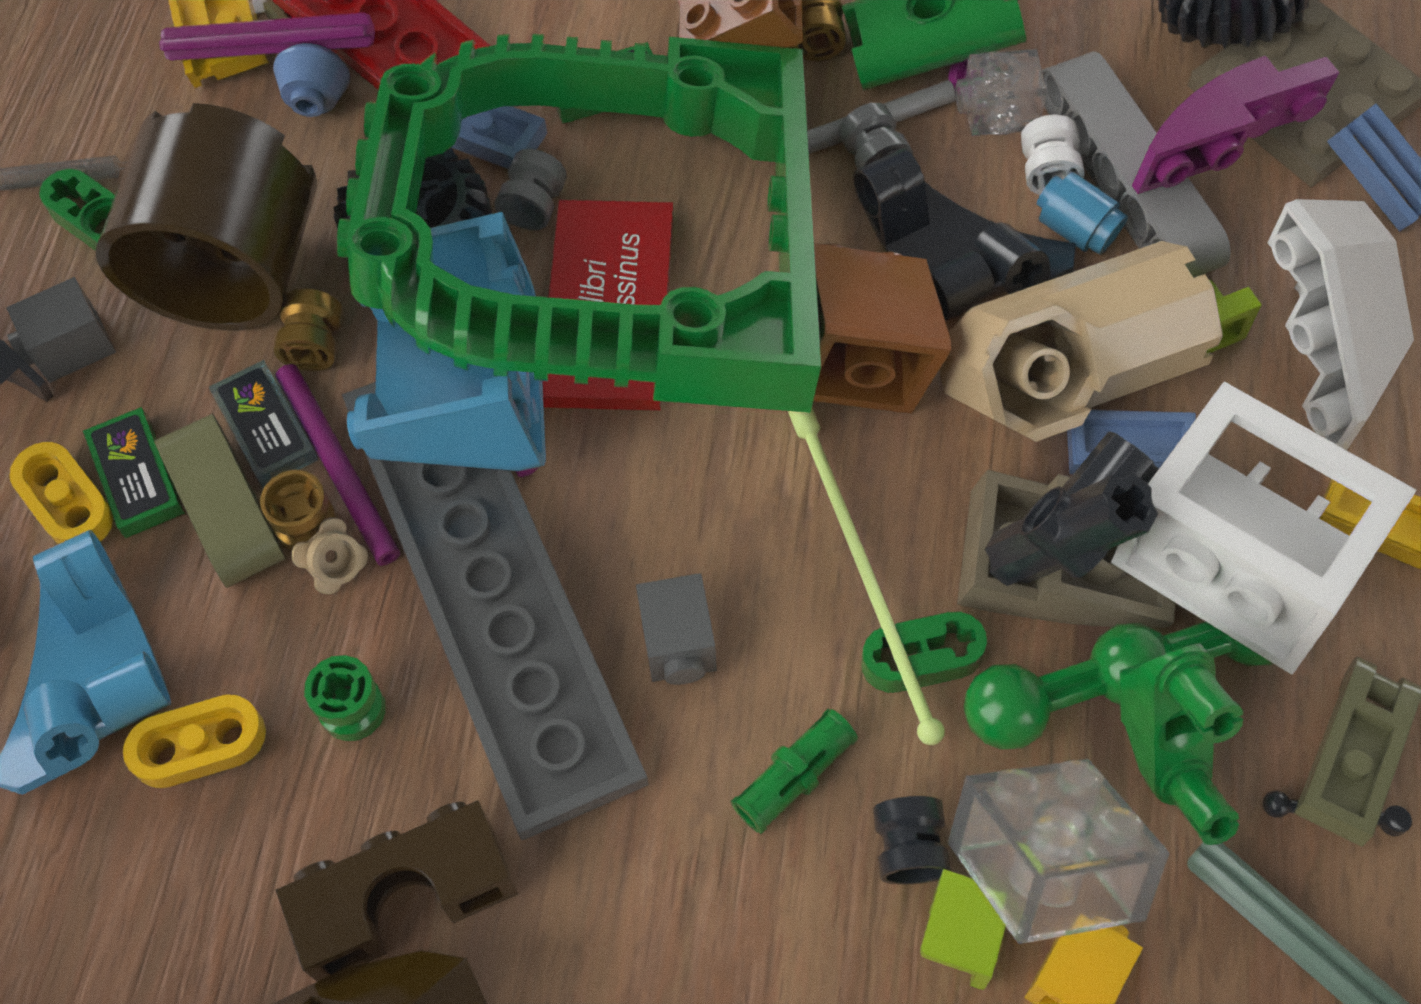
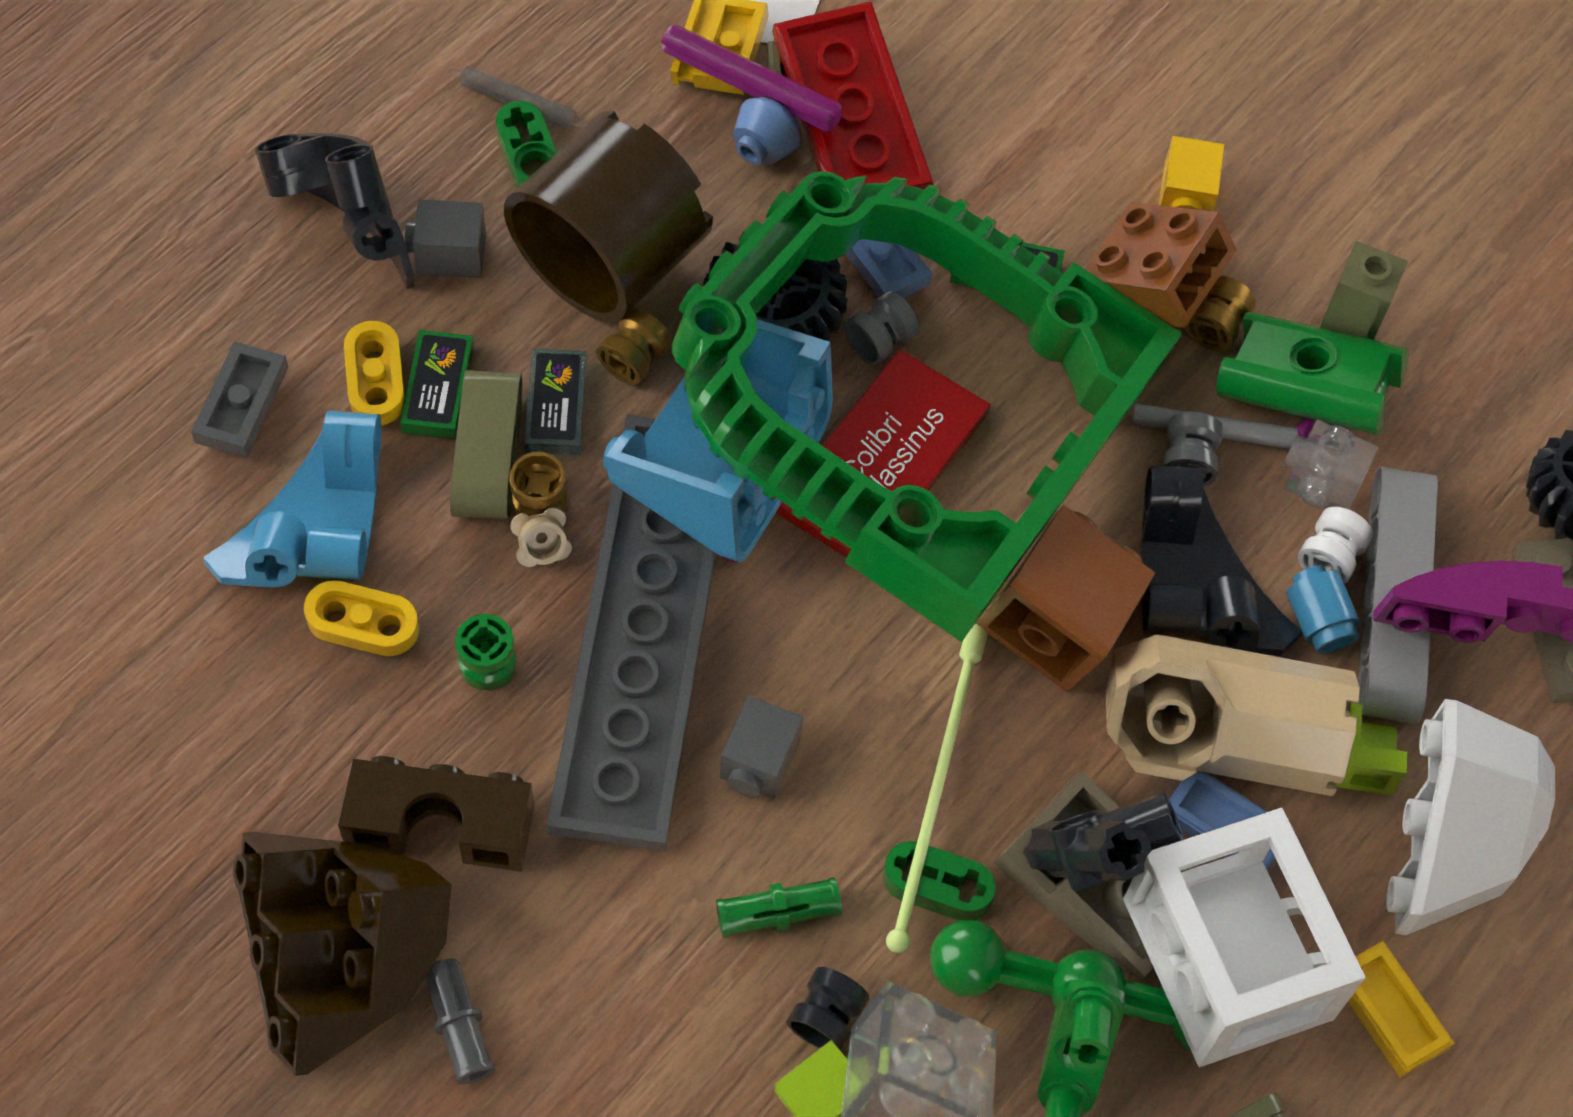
camera: 25 degrees right, 0 degrees up
(337, 465) = (591, 467): magenta piece -> none

